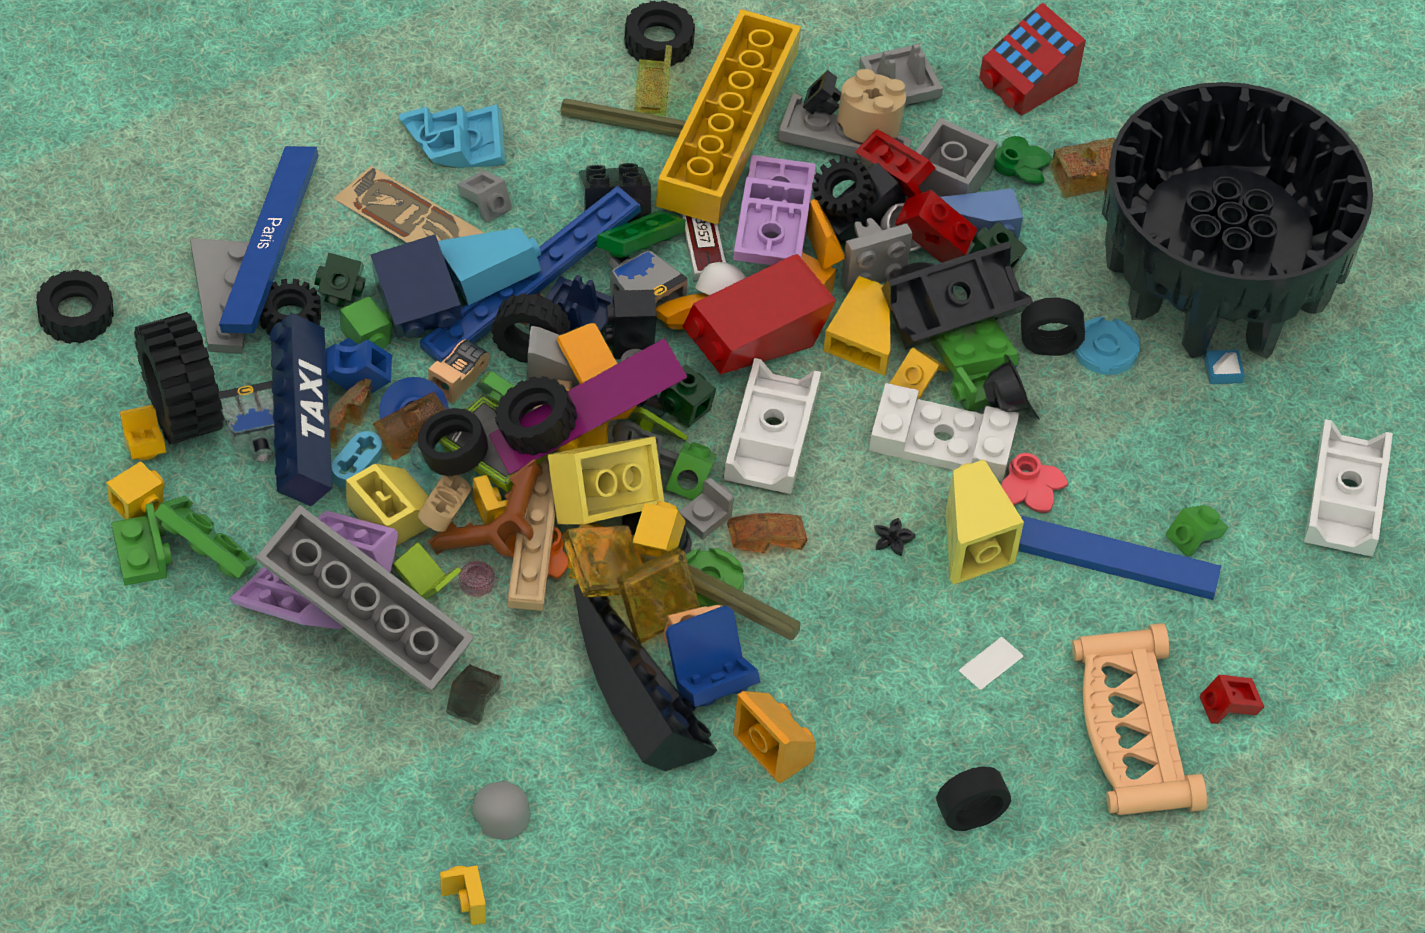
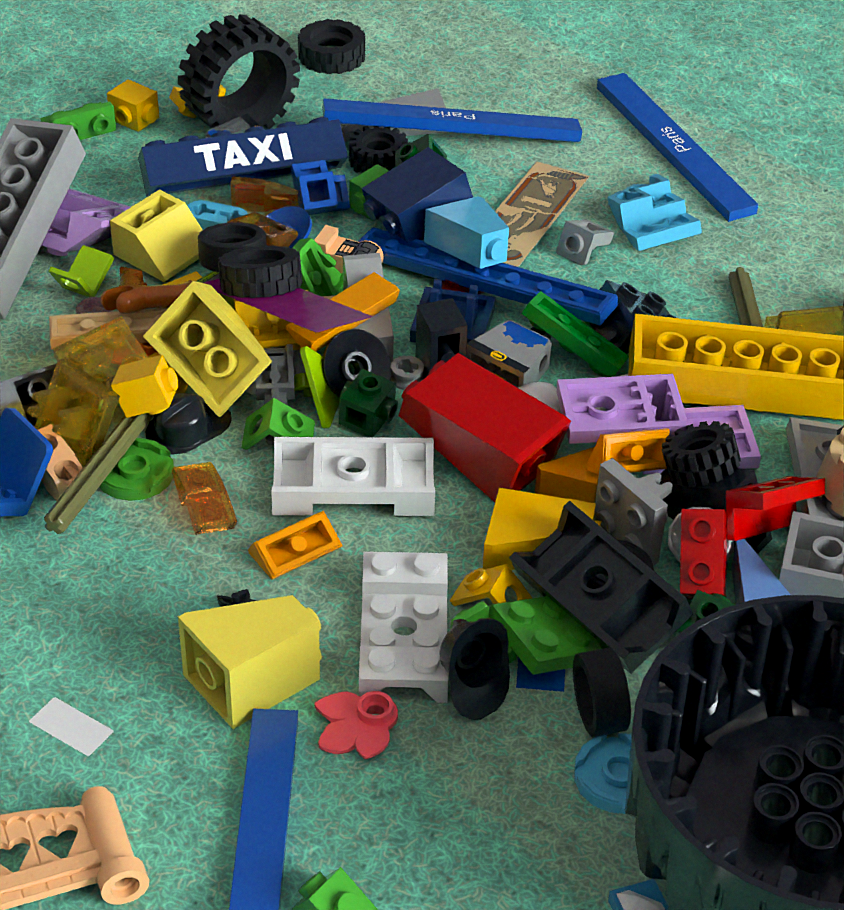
camera: 80 degrees right, 10 degrees down
(197, 529) = (102, 135): bright green wing -> none
(346, 89) = (678, 147): none -> blue tile
(444, 502) = (149, 264): tan beam -> none
(529, 310) = (403, 272): black tyre -> none
(708, 509) = (225, 451): light grey bracket -> none
(829, 486) = (295, 545): none -> light orange slope

